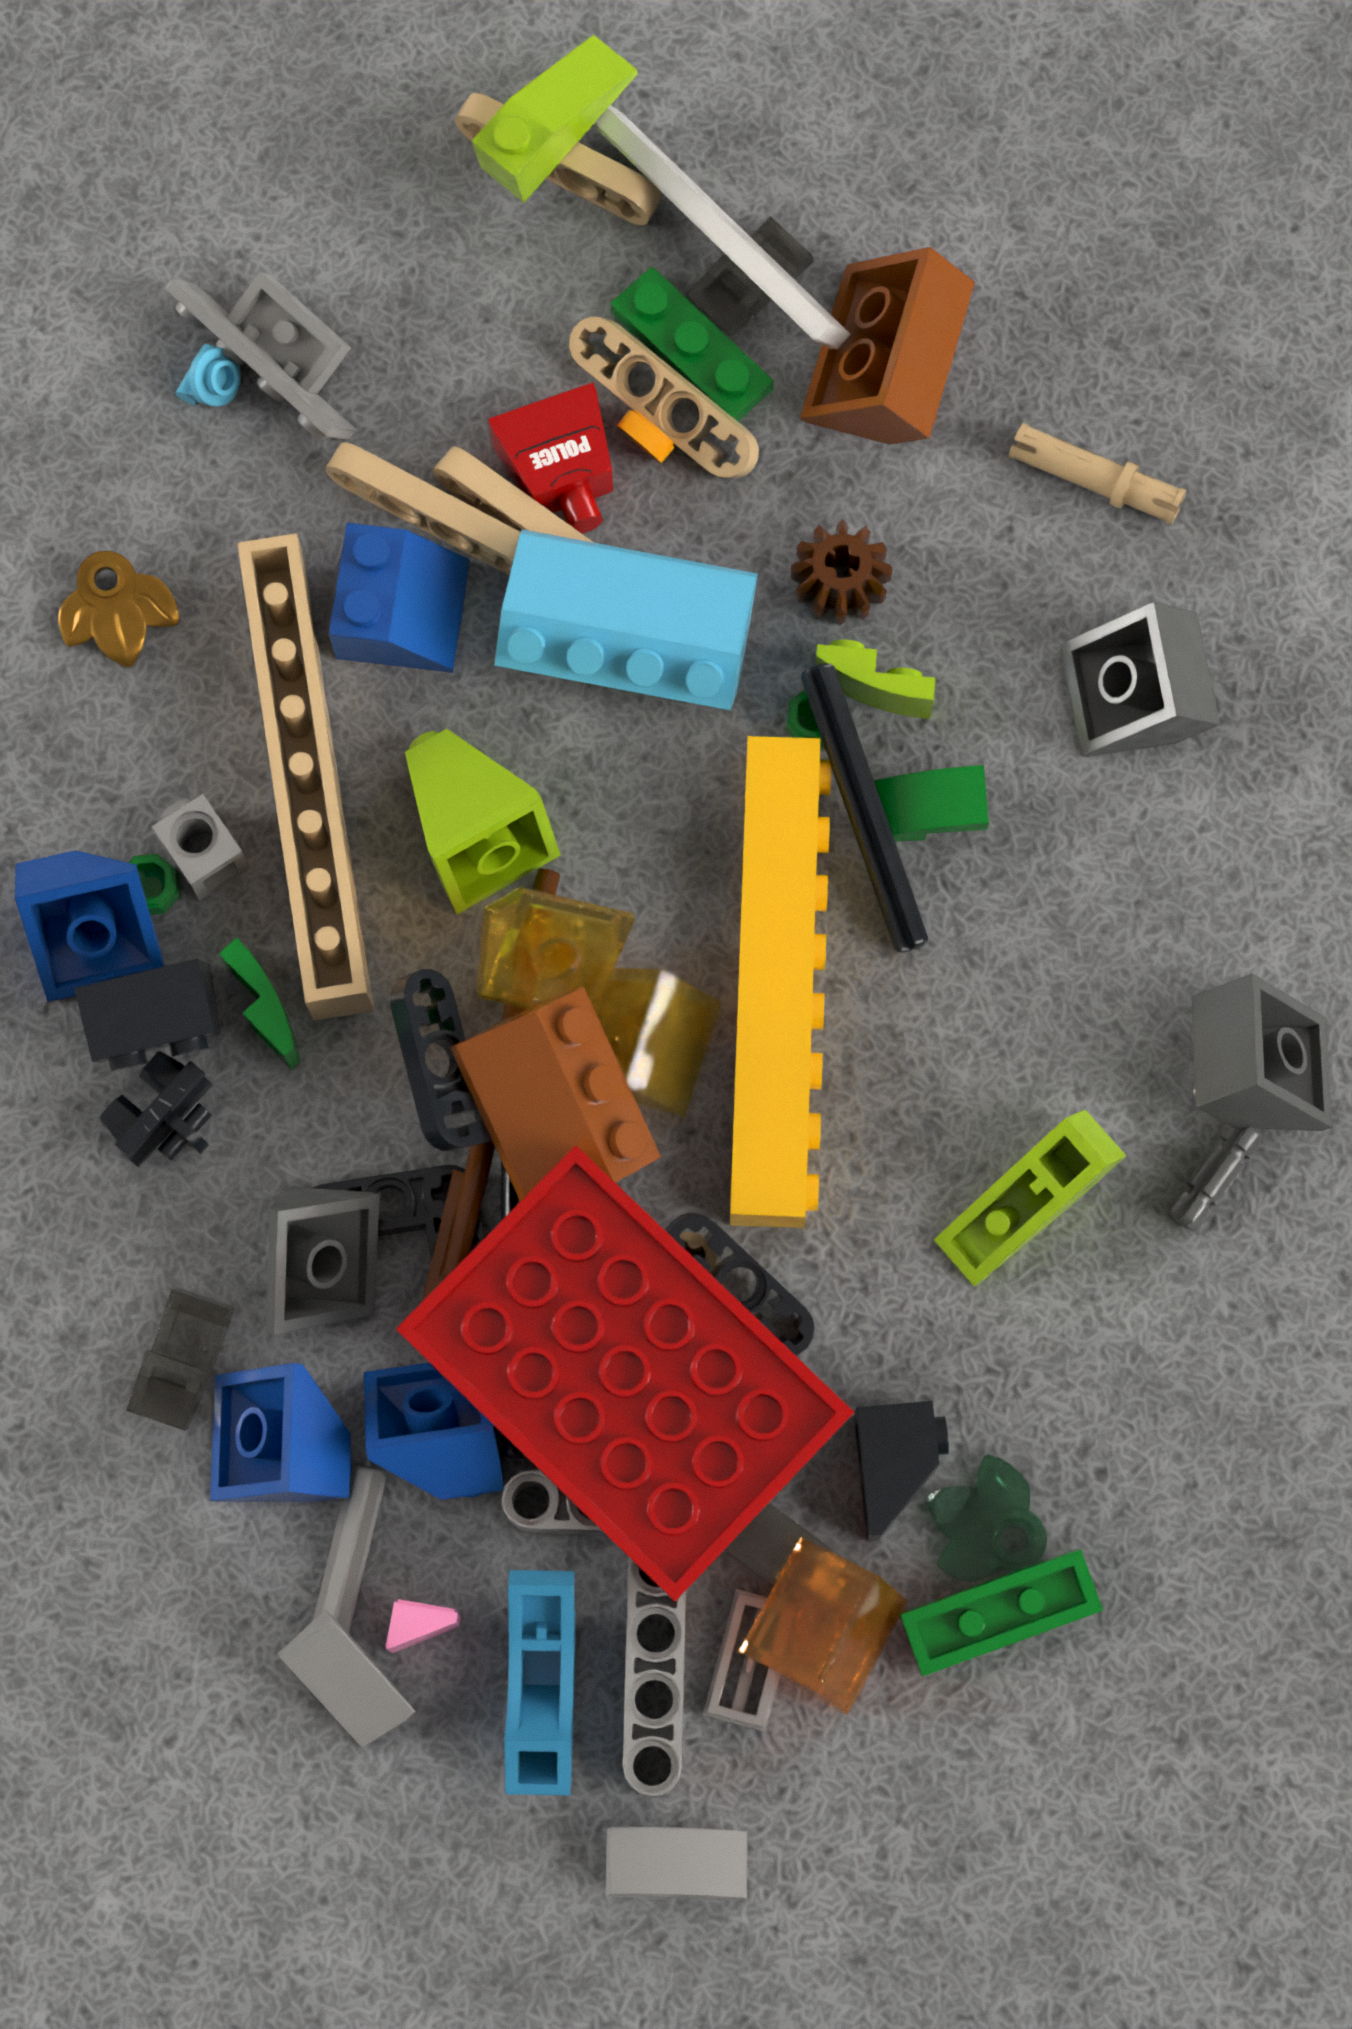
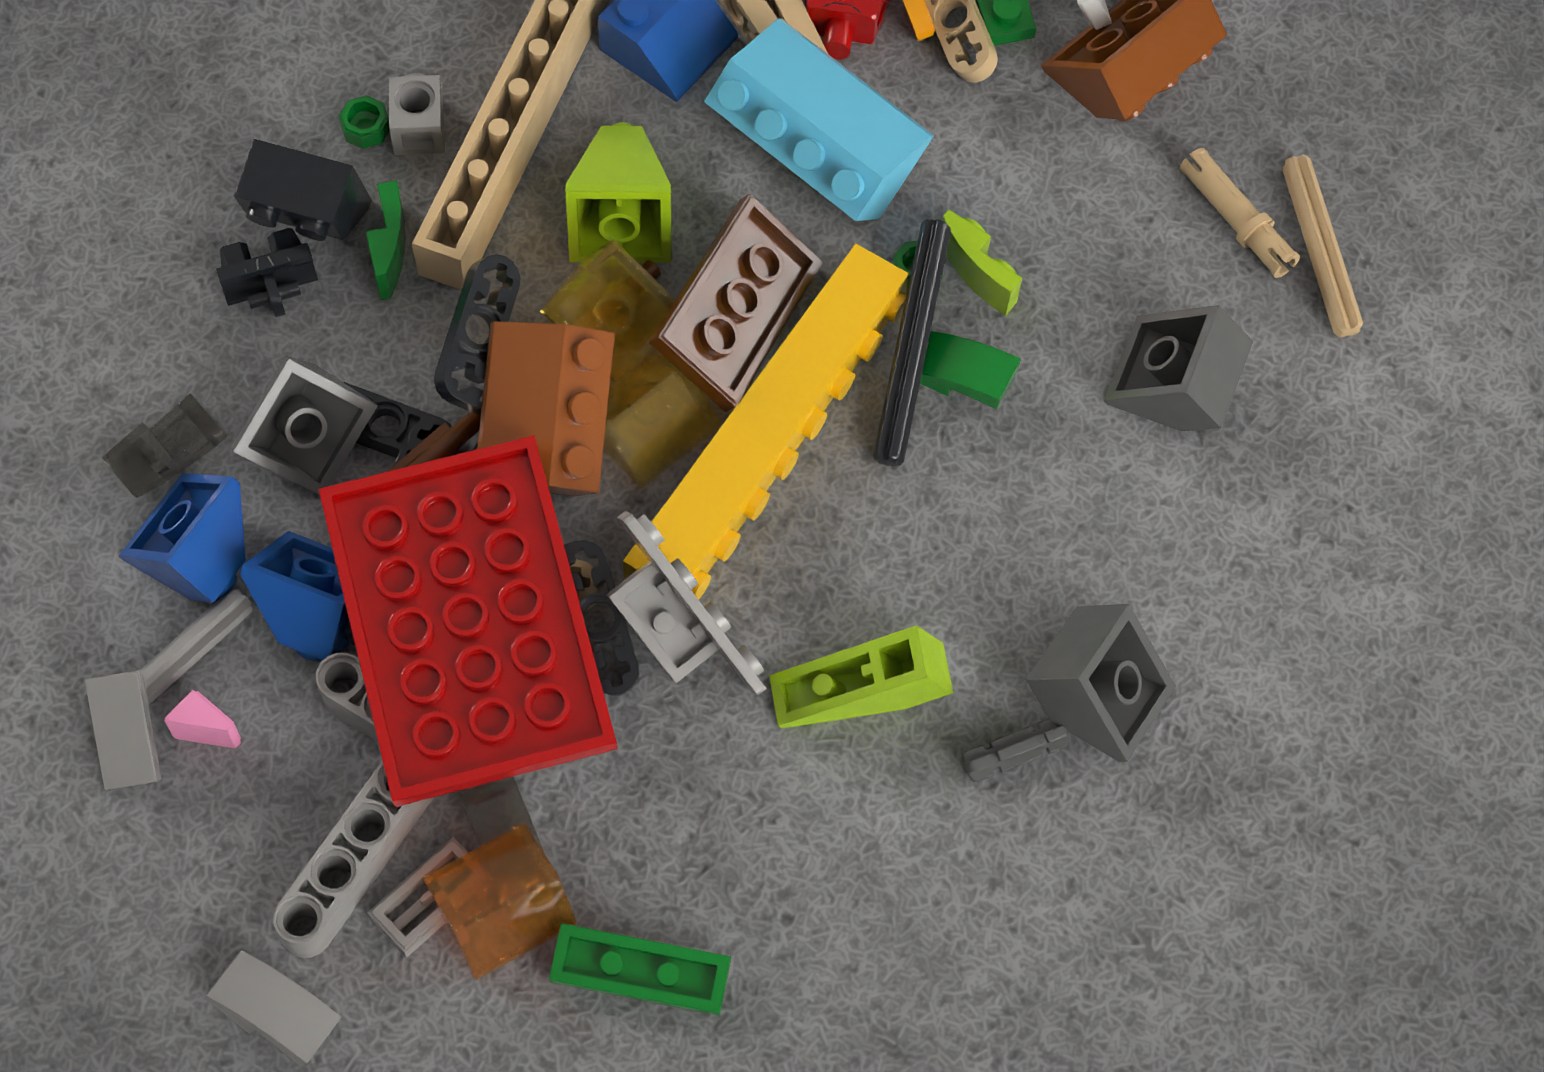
camera: 25 degrees right, 10 degrees down
(84, 920) = (301, 108): blue slope -> none
(540, 1682) = (264, 816): dark azure arch -> none
(669, 871) = (736, 303): none -> tile
(814, 1248) = (670, 617): none -> light grey bracket
(862, 564) = (1001, 177): reddish brown gear -> none
(896, 1458) = (633, 812): black slope -> none
(979, 1516) = (672, 895): clear green plate -> none
(1197, 462) = (1322, 246): none -> tan axle

